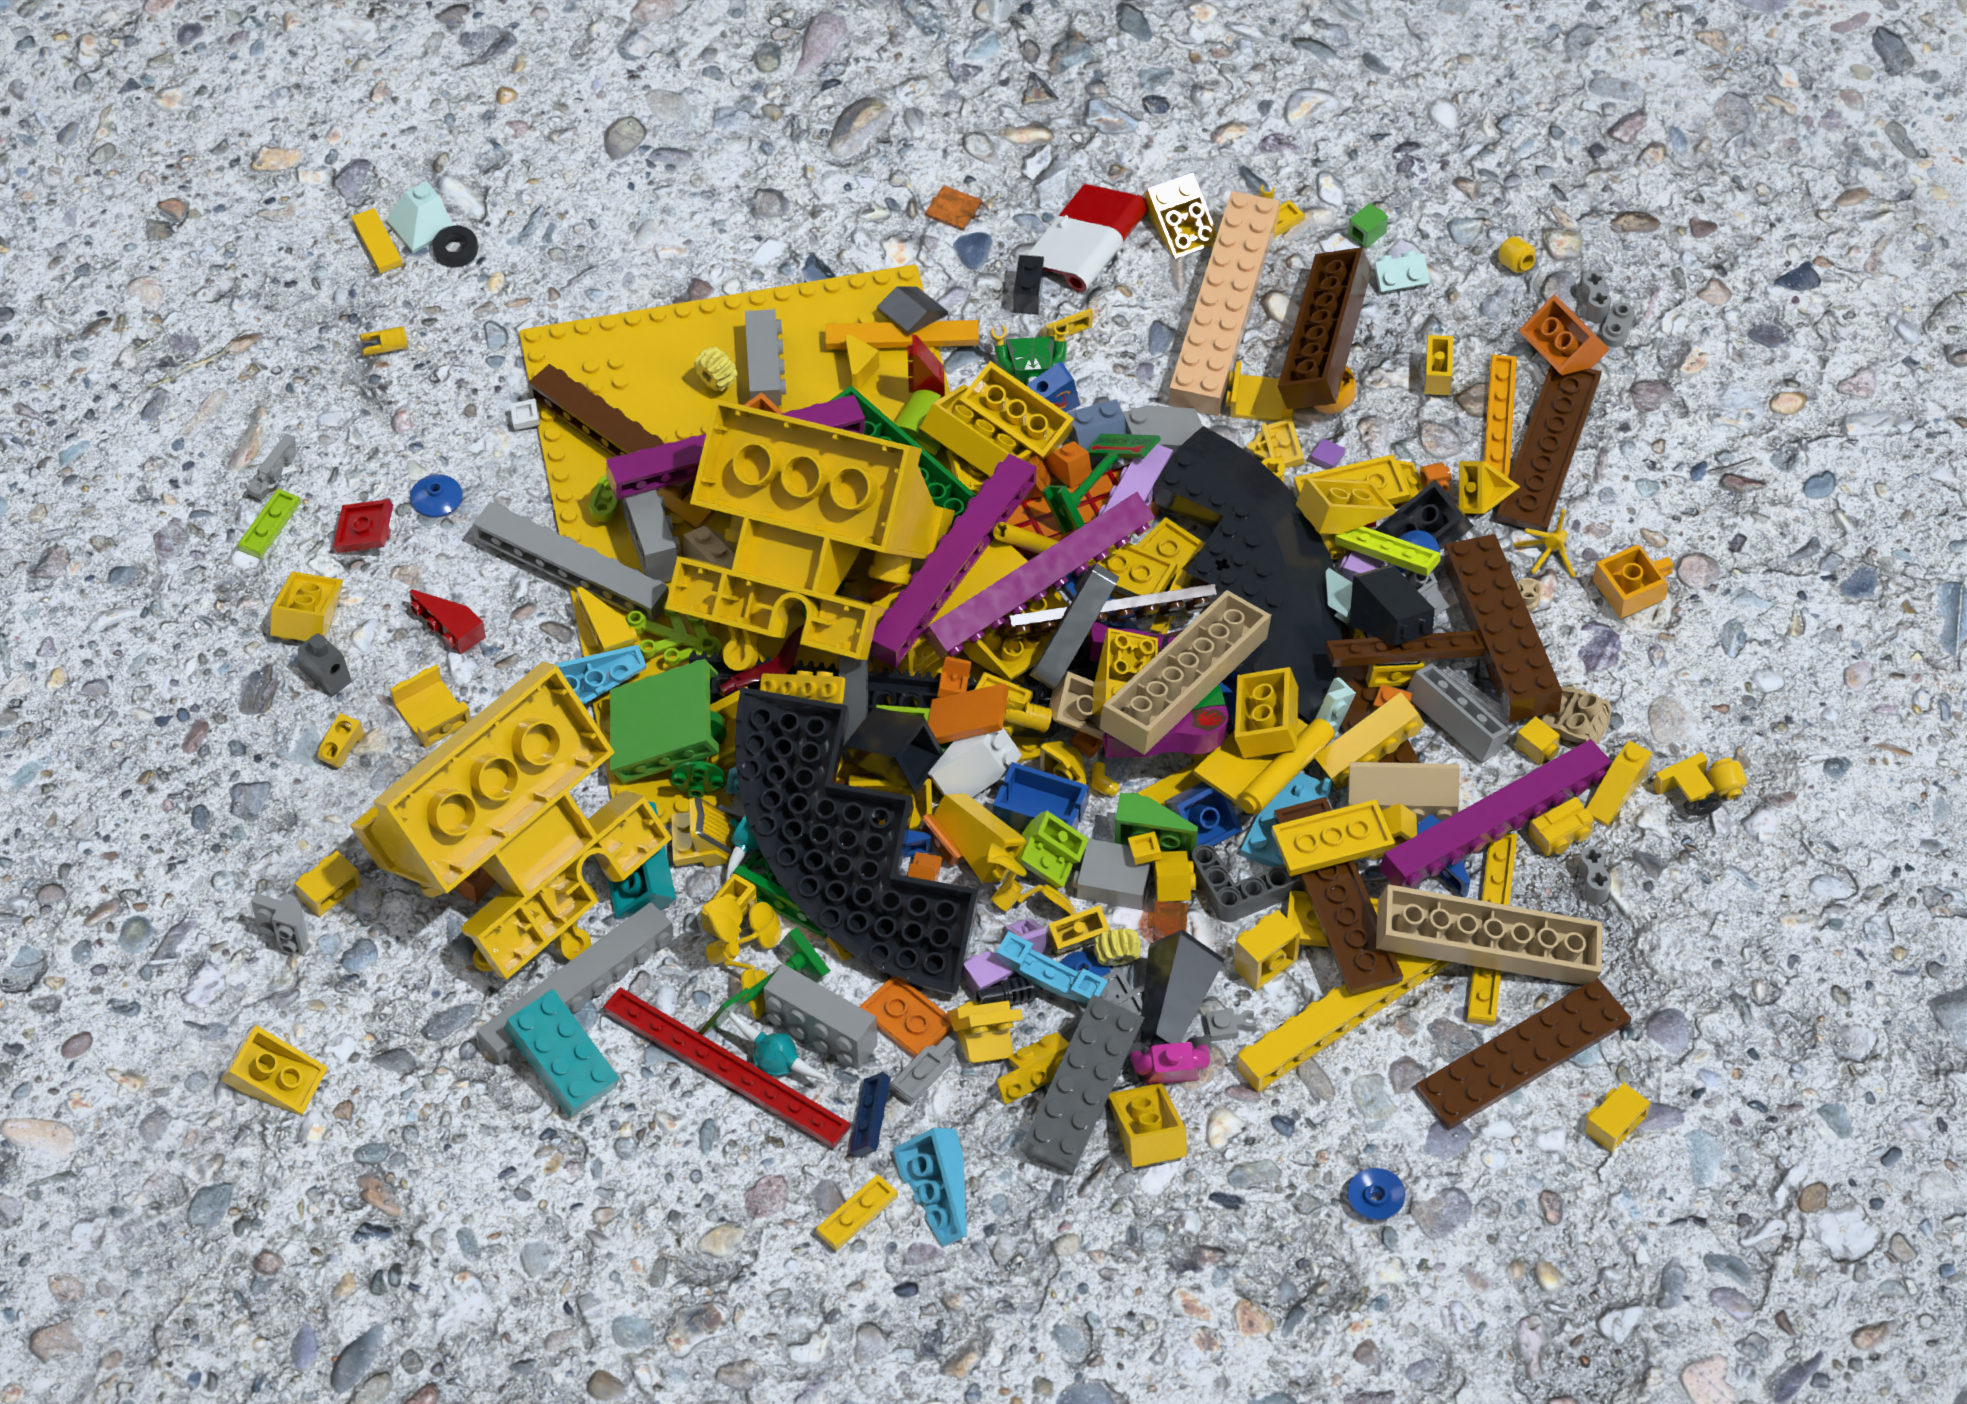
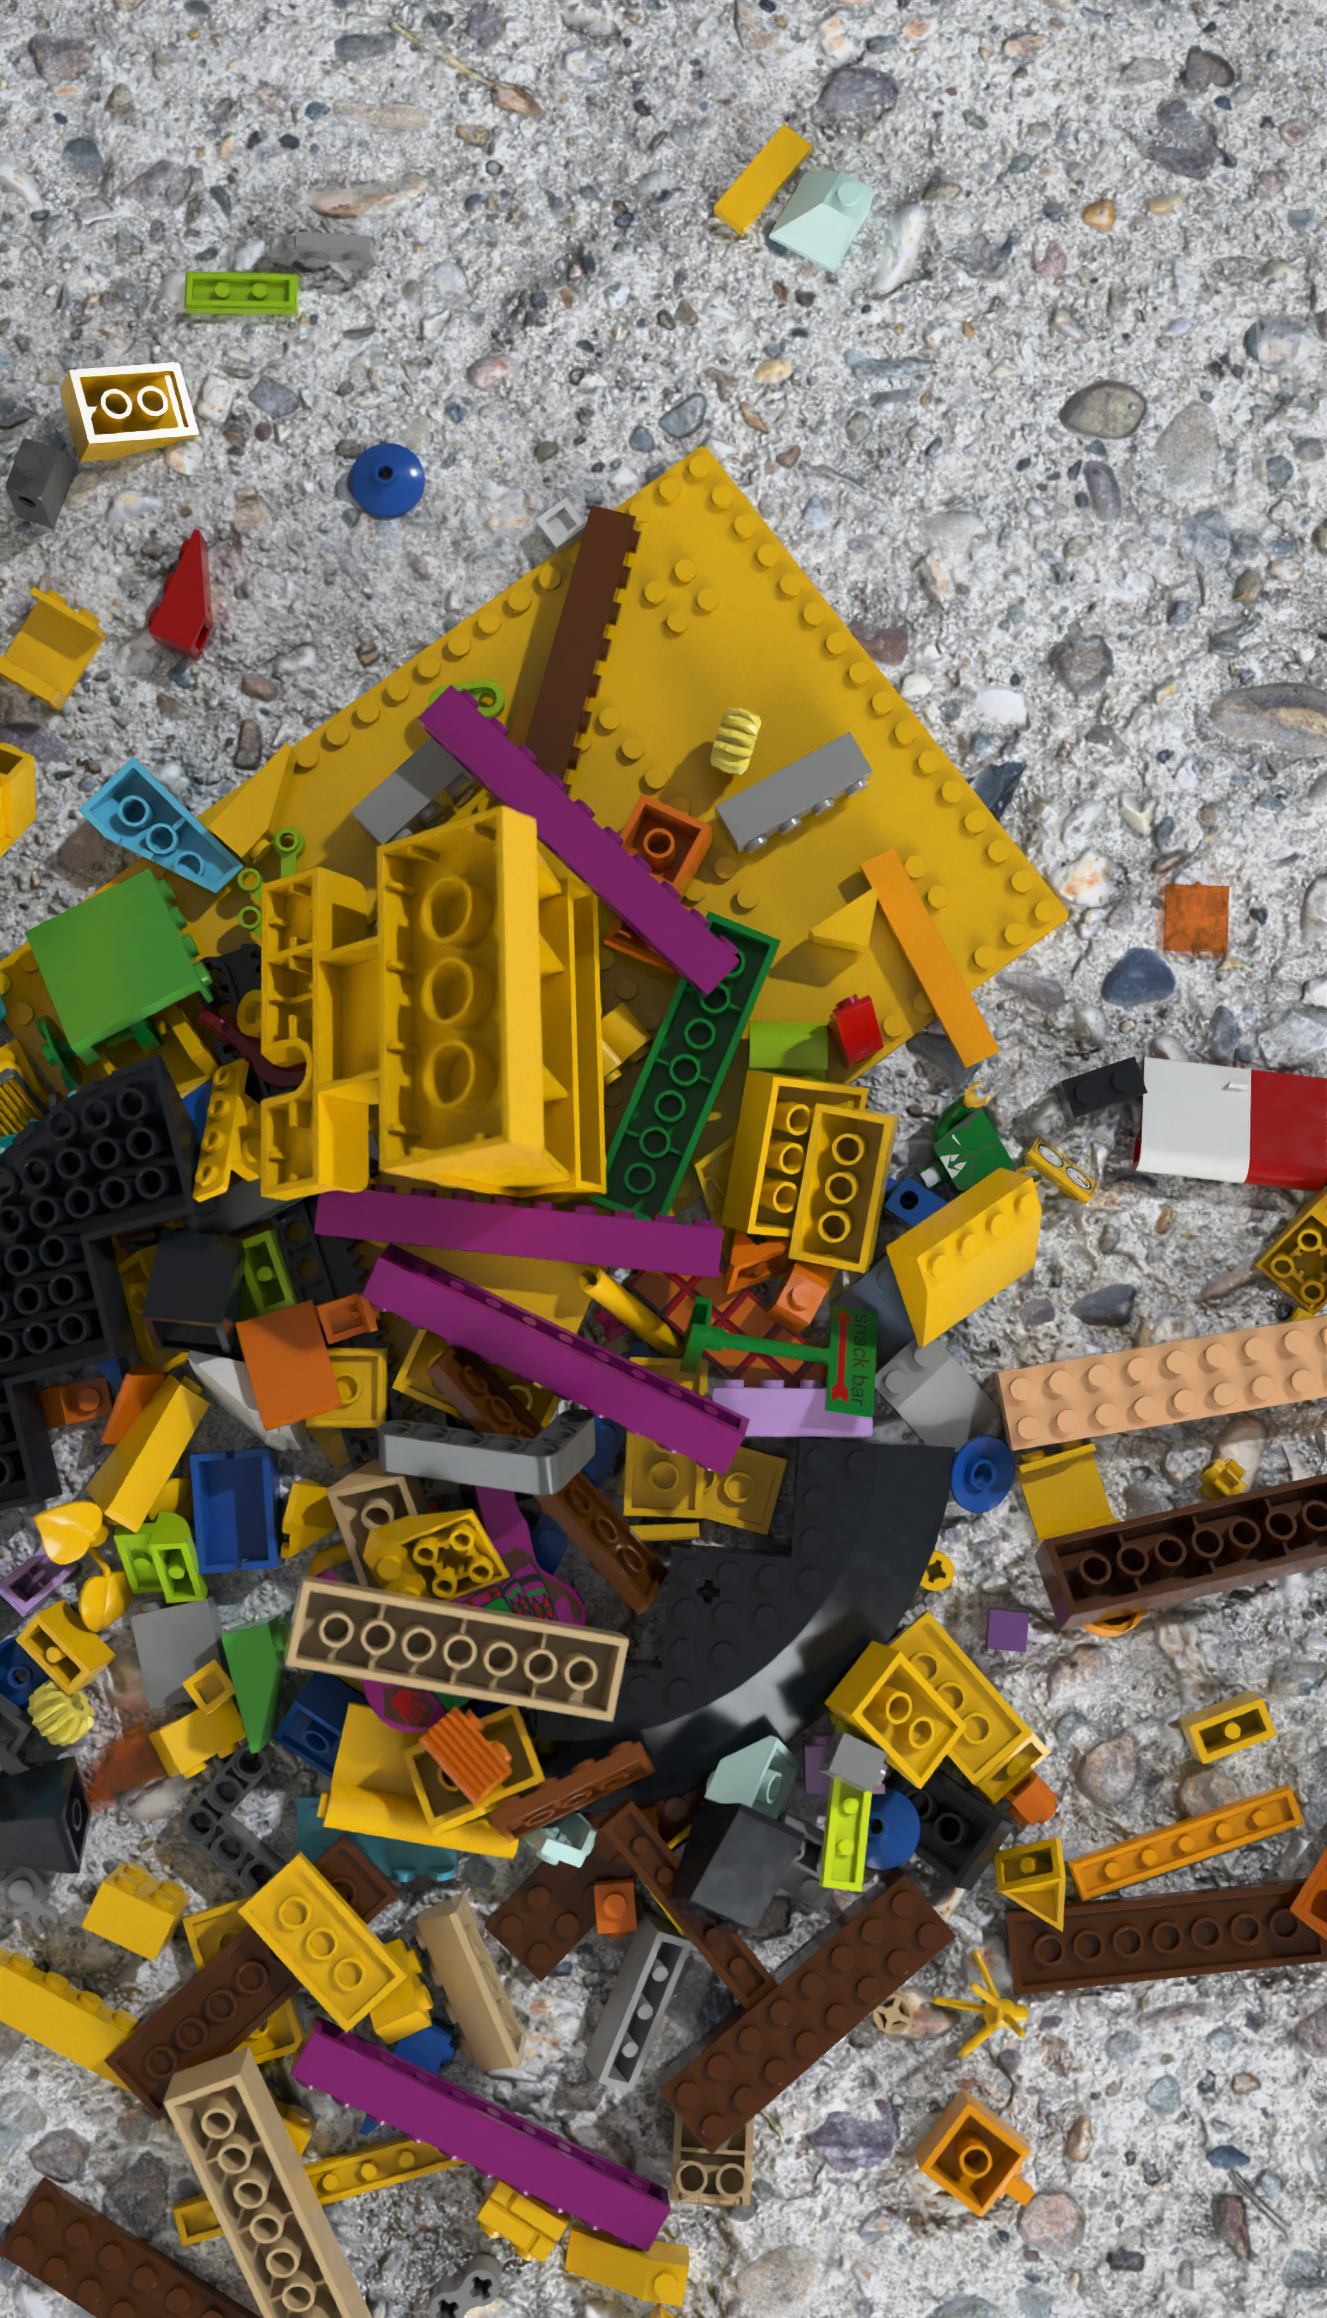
camera: 65 degrees right, 30 degrees up
(363, 526) = (280, 415): red hinge -> none
(391, 340) = (598, 283): yellow hinge -> none
(455, 233) = (808, 264): black tyre -> none
(570, 561) = (338, 711): light grey brick -> none
(910, 308) = (974, 952): slope -> none
(1028, 714) = (335, 1446): yellow hinge -> none
(1087, 364) = (967, 1252): none -> yellow slope
(1226, 425) = (981, 1474): none -> blue dish
(1254, 695) = (466, 1754): none -> orange brick
(1278, 441) = (991, 1554): yellow slope -> none
(1289, 314) = (1221, 1479): none -> yellow gear
(1305, 665) = (559, 1798): none -> dark orange plate
(1360, 529) = (854, 1762): none -> light grey brick
(1370, 739) = (528, 1912): yellow brick -> none
(1538, 741) = (648, 2127): yellow brick -> none

